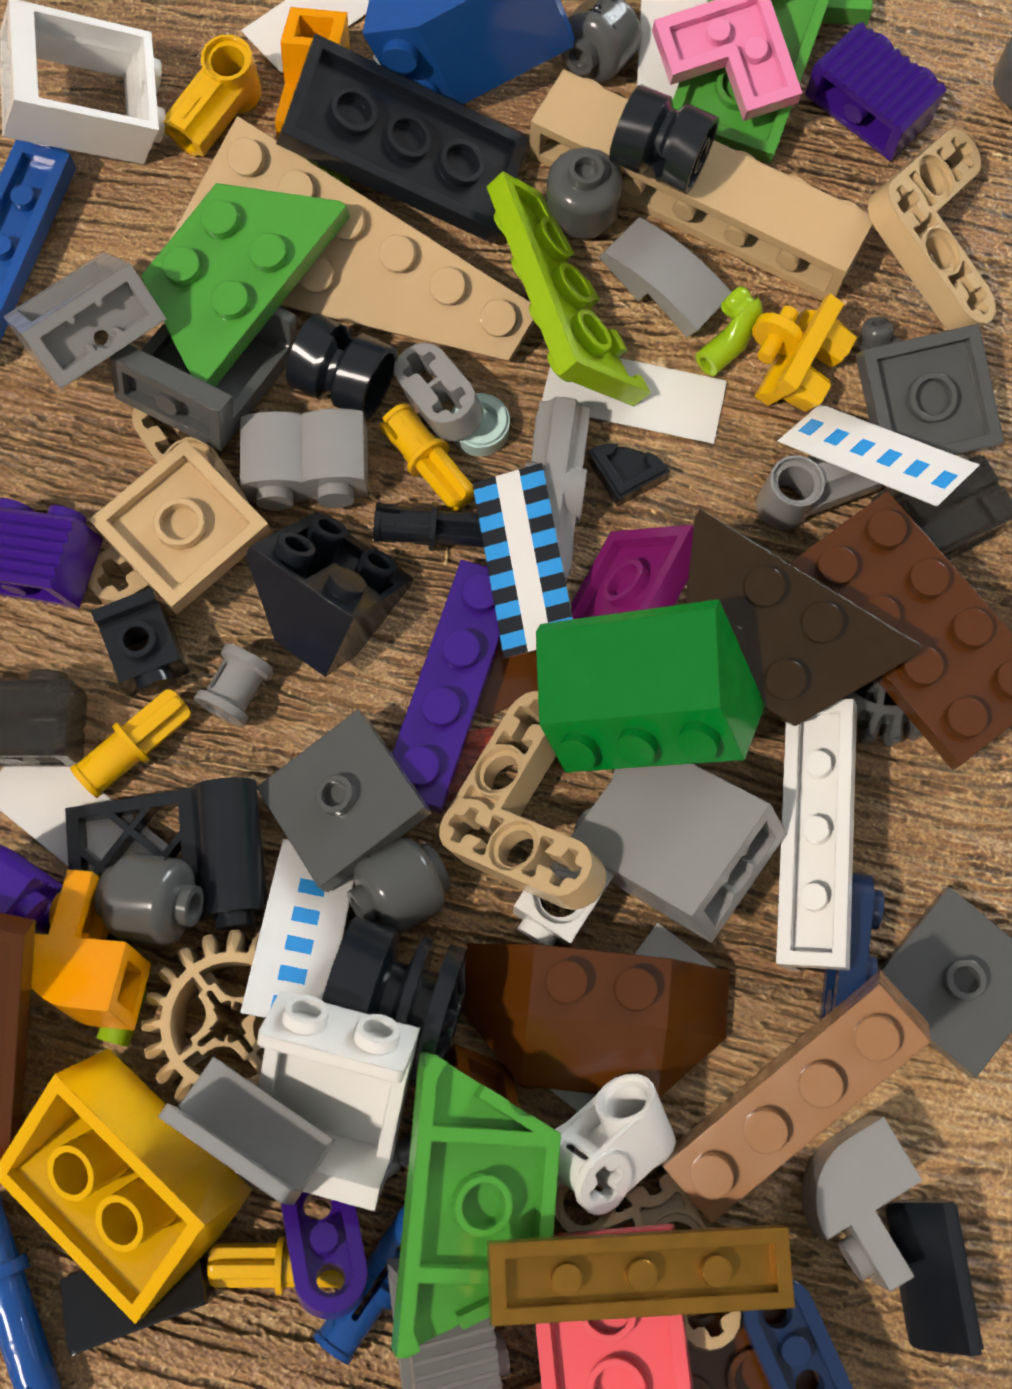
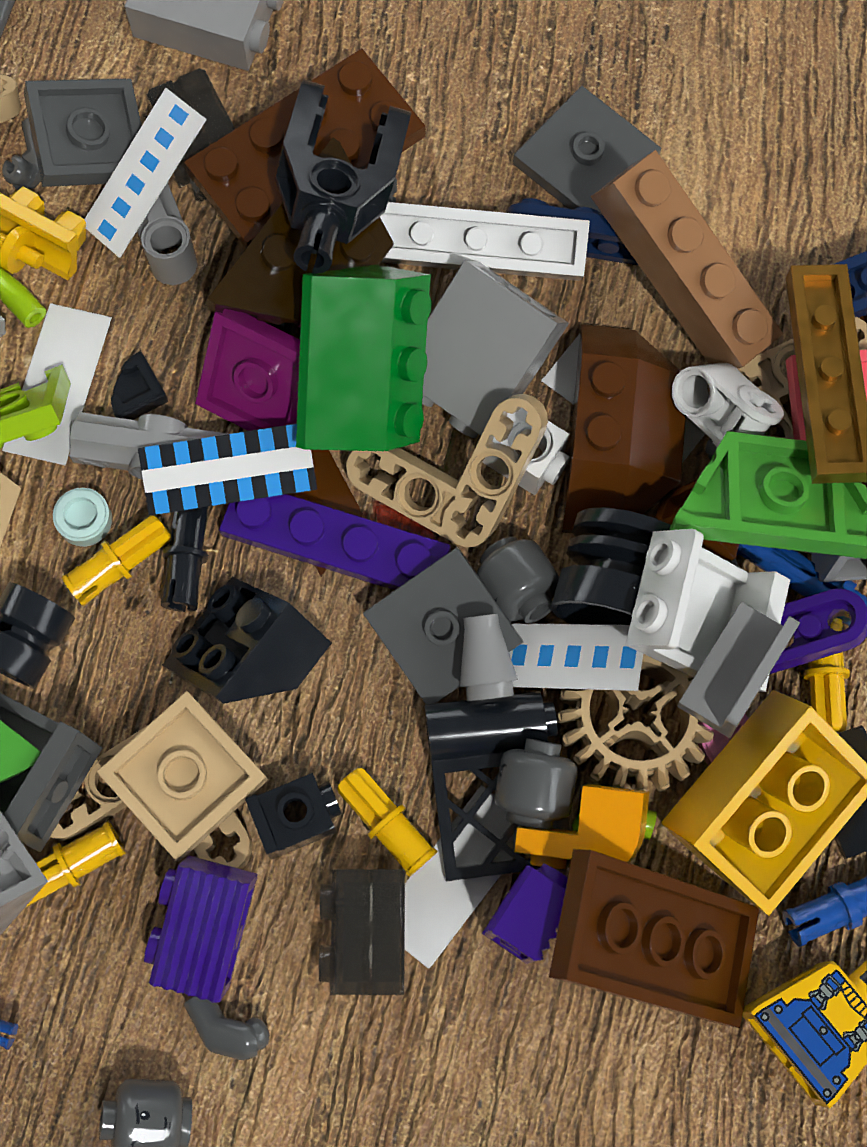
camera: 90 degrees left, 0 degrees up
(108, 428) = (78, 858): none -> yellow axle
(234, 685) = (333, 729): light grey bush -> none
(290, 841) = (485, 660): none -> light grey cone
(304, 458) = (112, 670): light grey brick -> none
(429, 397) = (44, 538): light grey beam -> none
(836, 670) = (329, 195): none -> black piece
(844, 1187) = (758, 243): light grey brick -> none
(940, 1296) = (806, 188): black slope -> none

